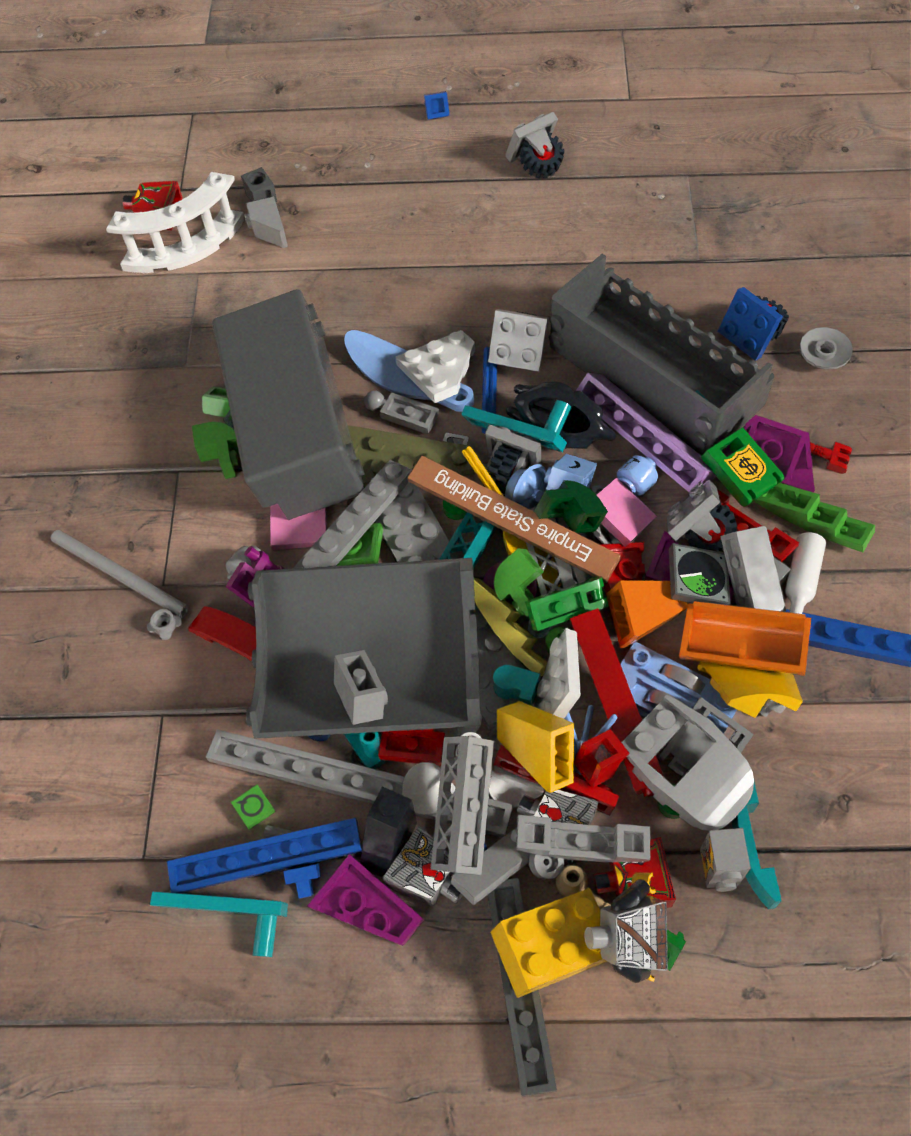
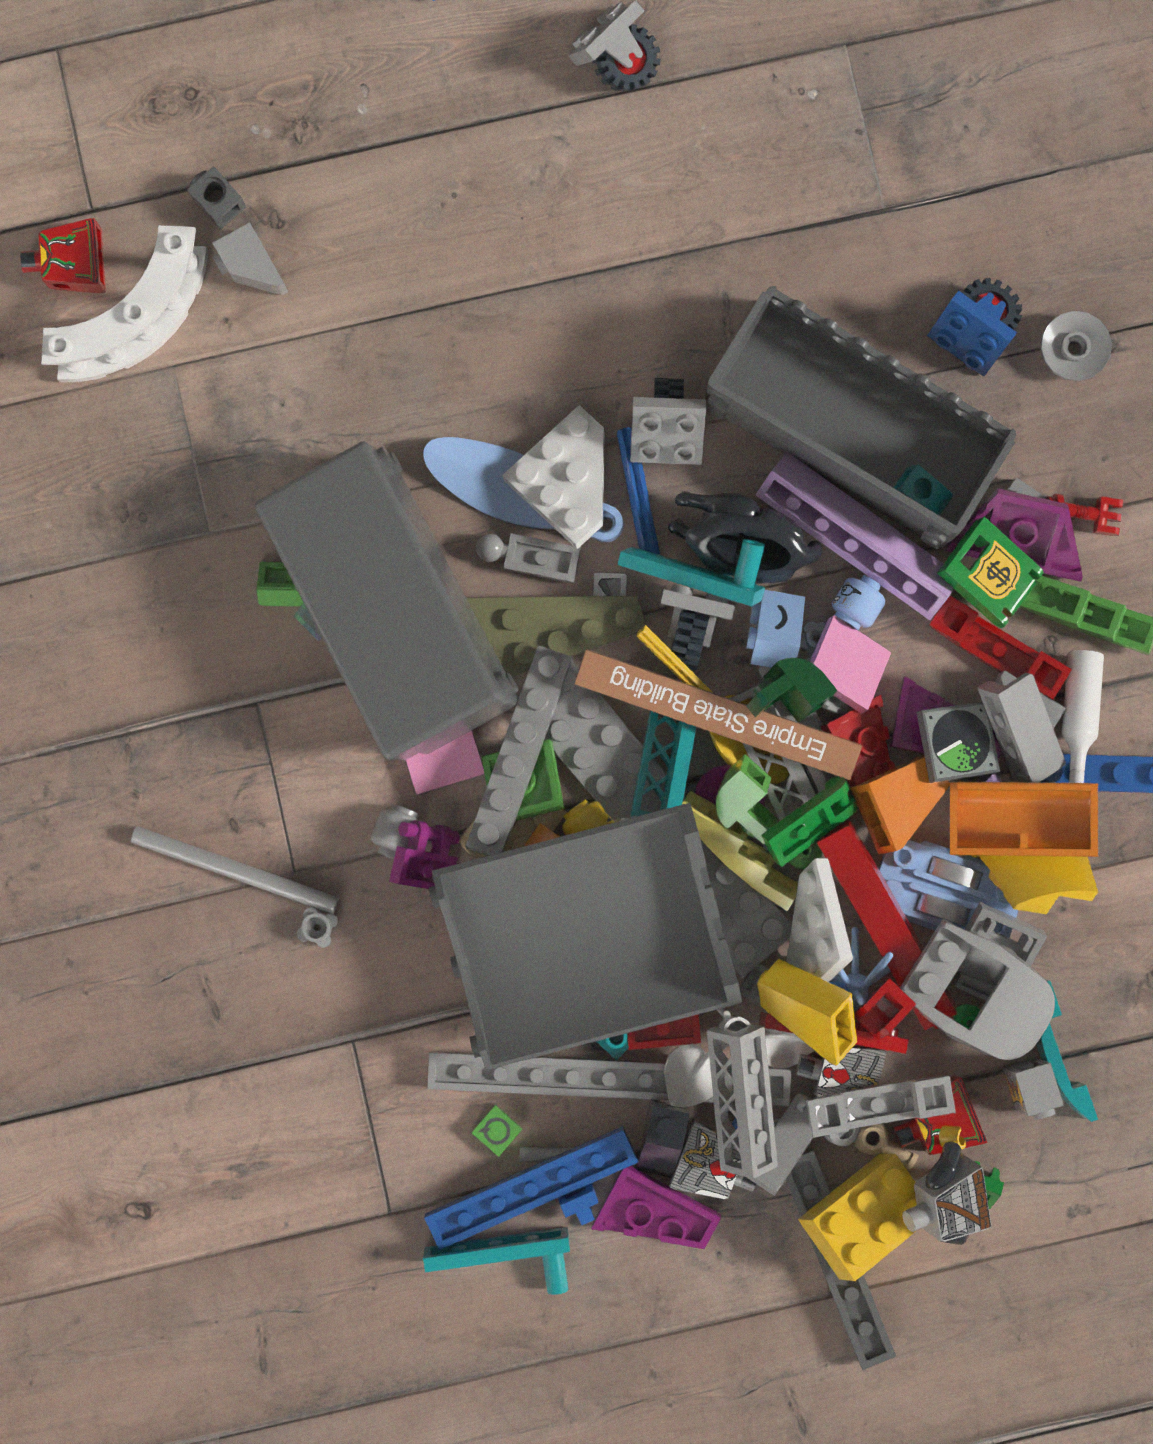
camera: 15 degrees left, 25 degrees up
(217, 441) = (302, 653): bright green brick -> none
(226, 630) = (401, 925): red slope -> none
(359, 687) = (594, 990): light grey brick -> none
(516, 683) = (763, 928): teal leg -> none
(527, 486) = (724, 660): light blue piece -> none
(701, 518) = (948, 659): light grey plate -> none

